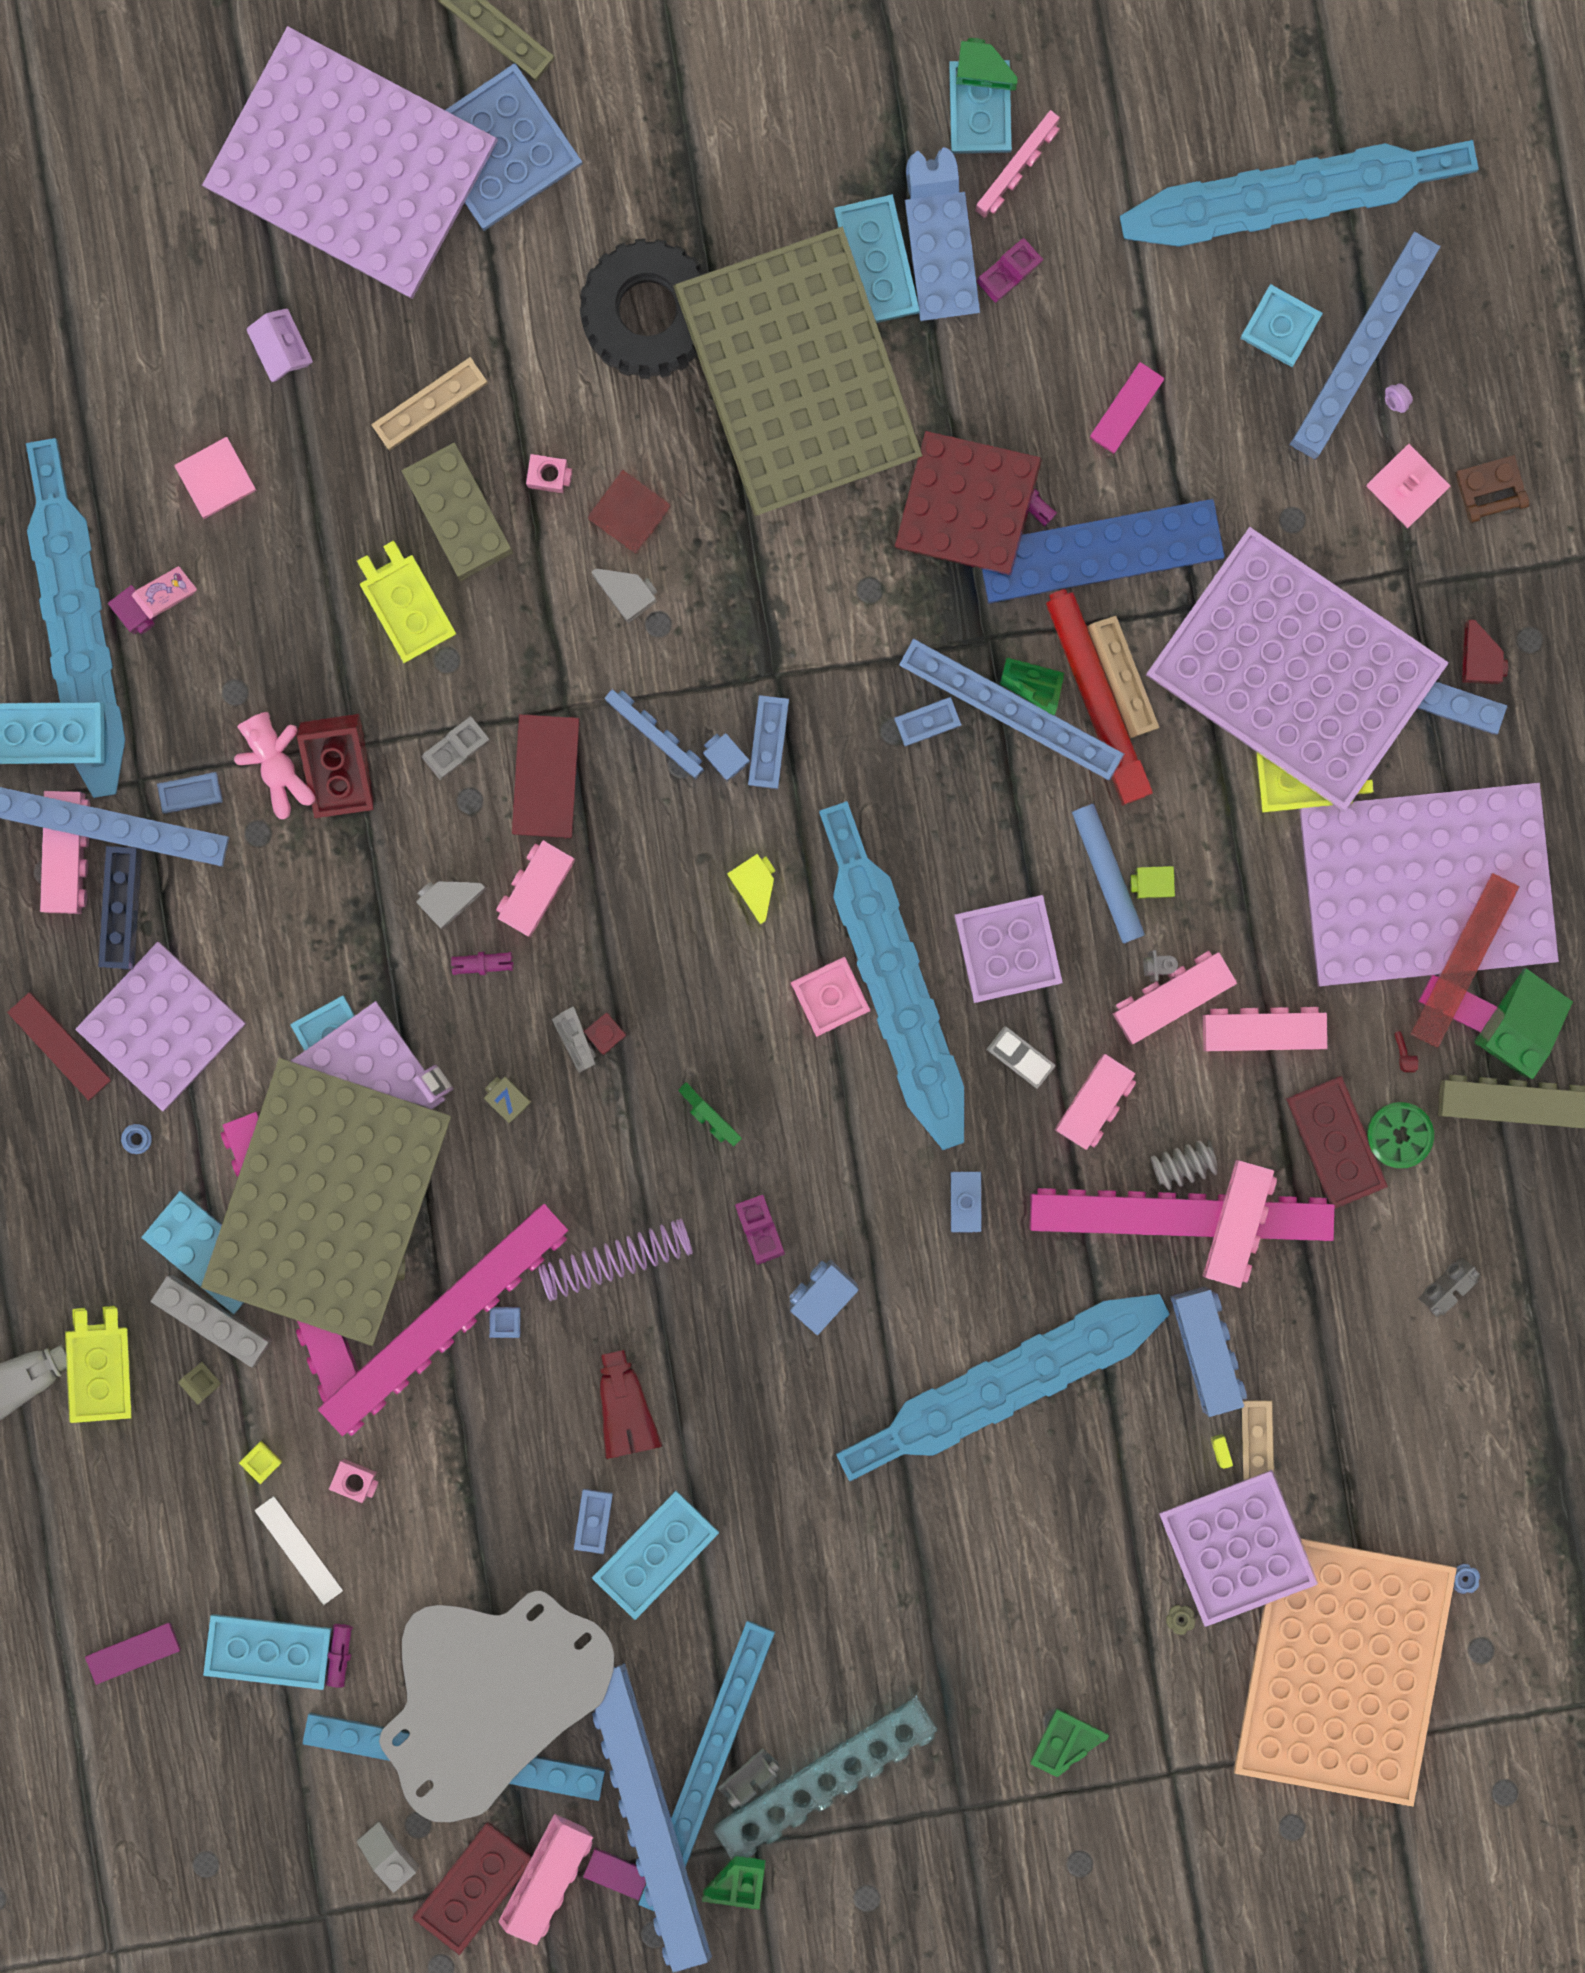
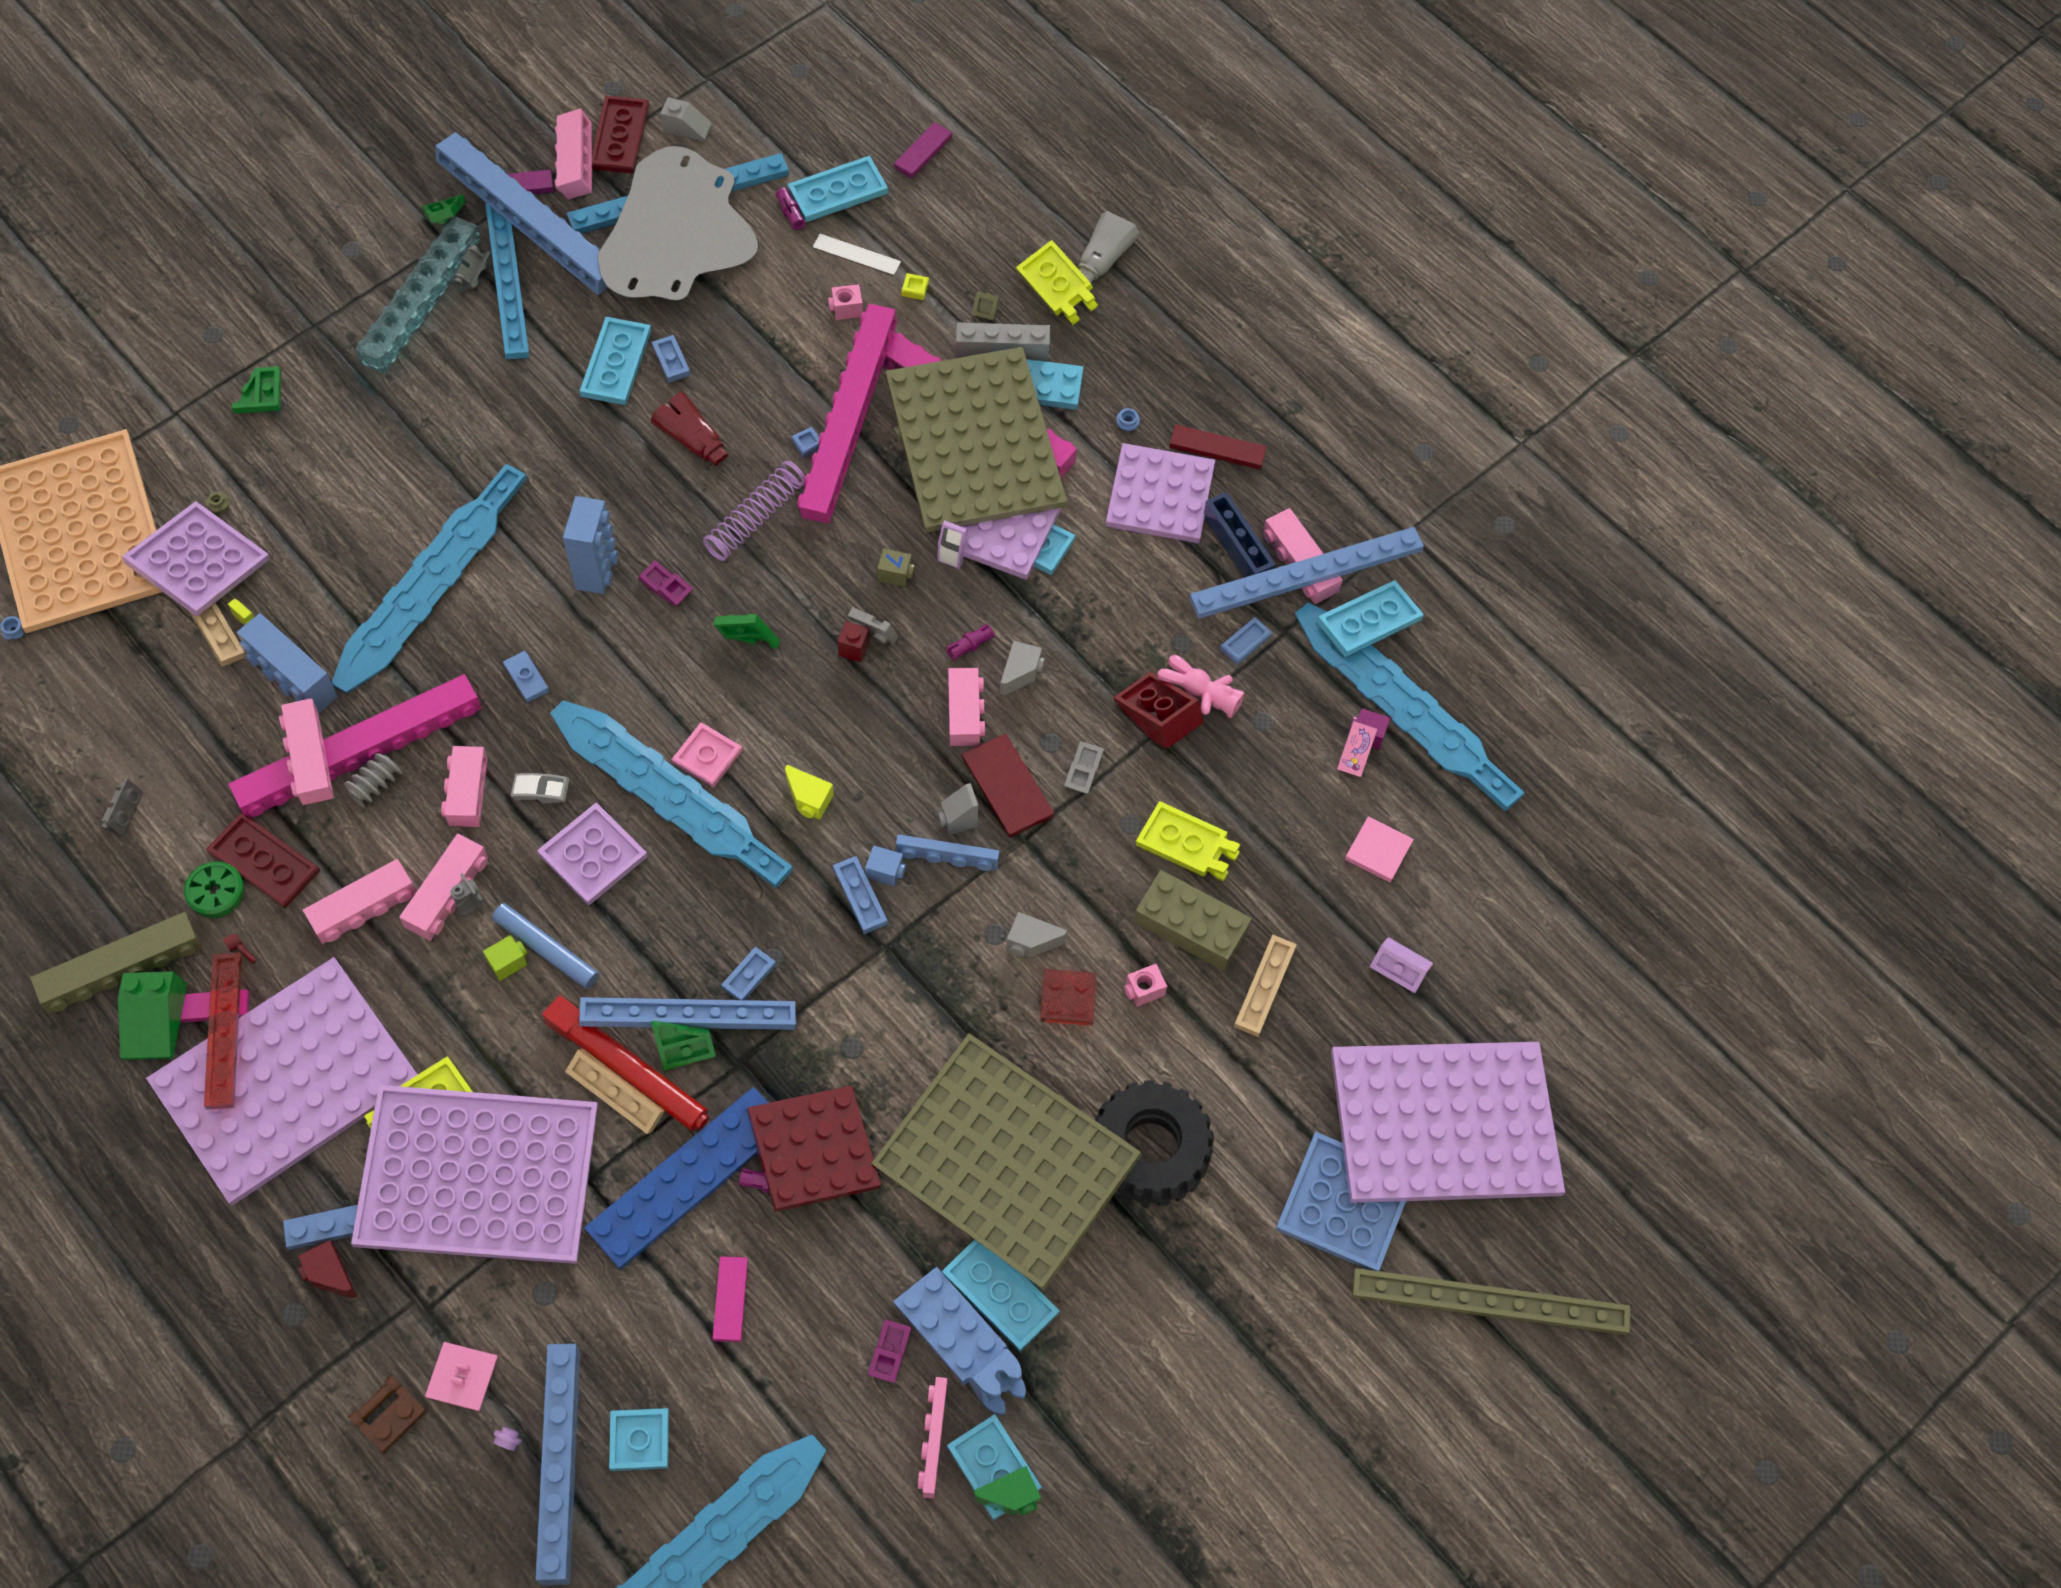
camera: 145 degrees right, 25 degrees down
(617, 768) = (959, 811): none -> light grey slope

